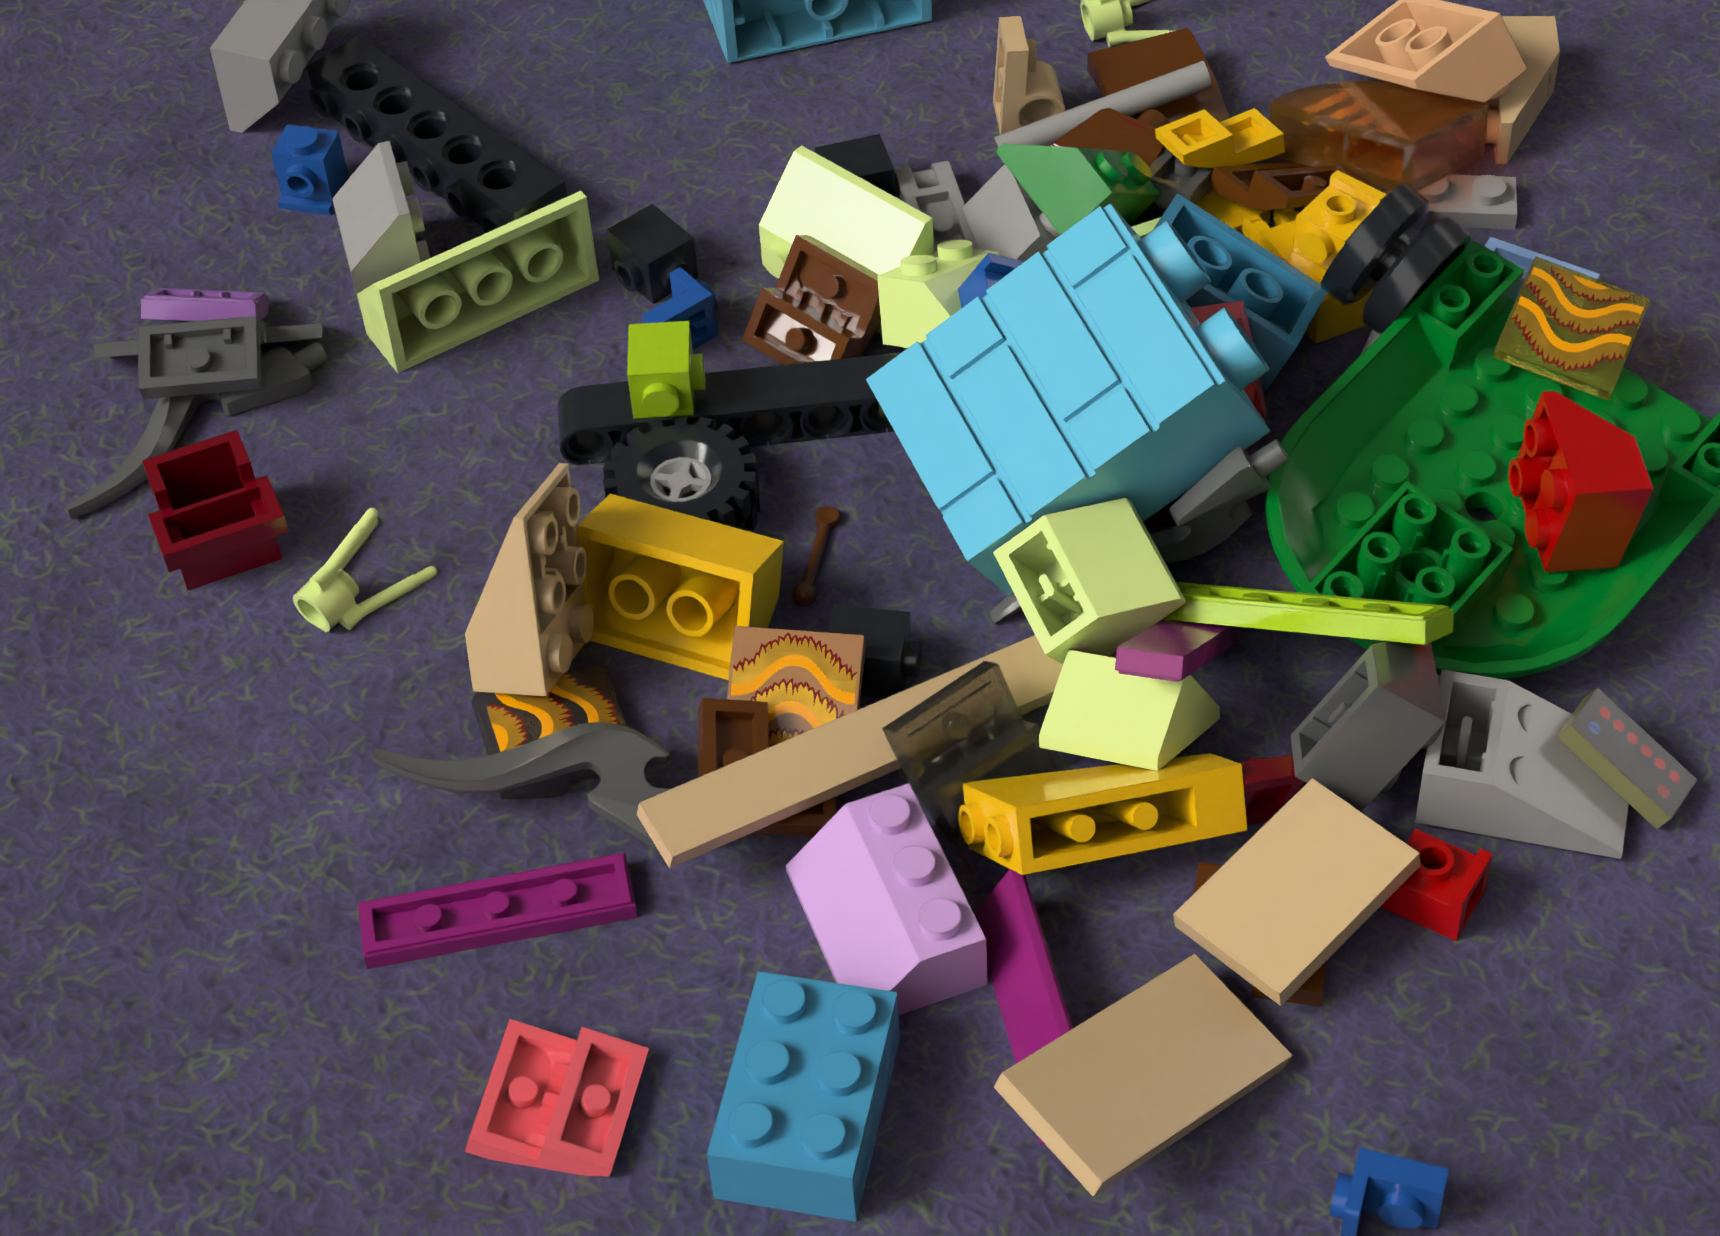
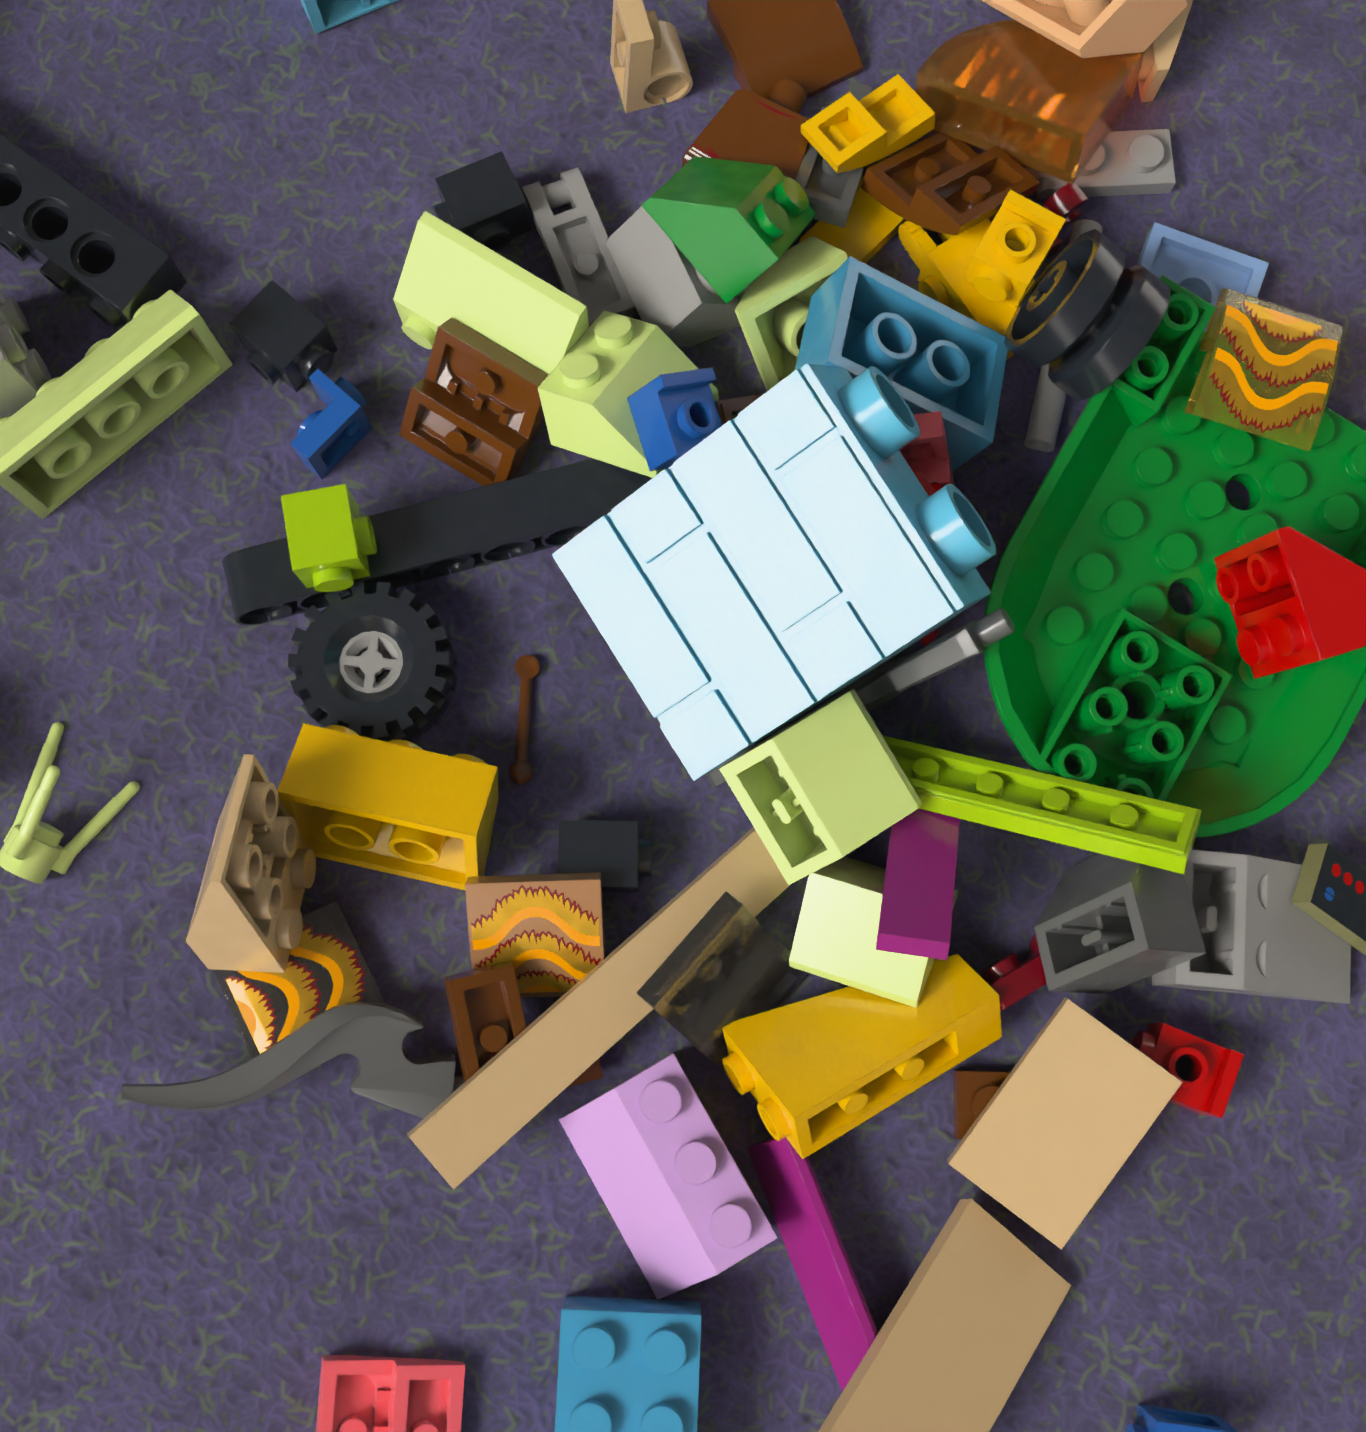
camera: 15 degrees left, 30 degrees up
(496, 910) = (284, 1214): magenta tile -> none
(1127, 101) = (749, 75): light grey piece -> none

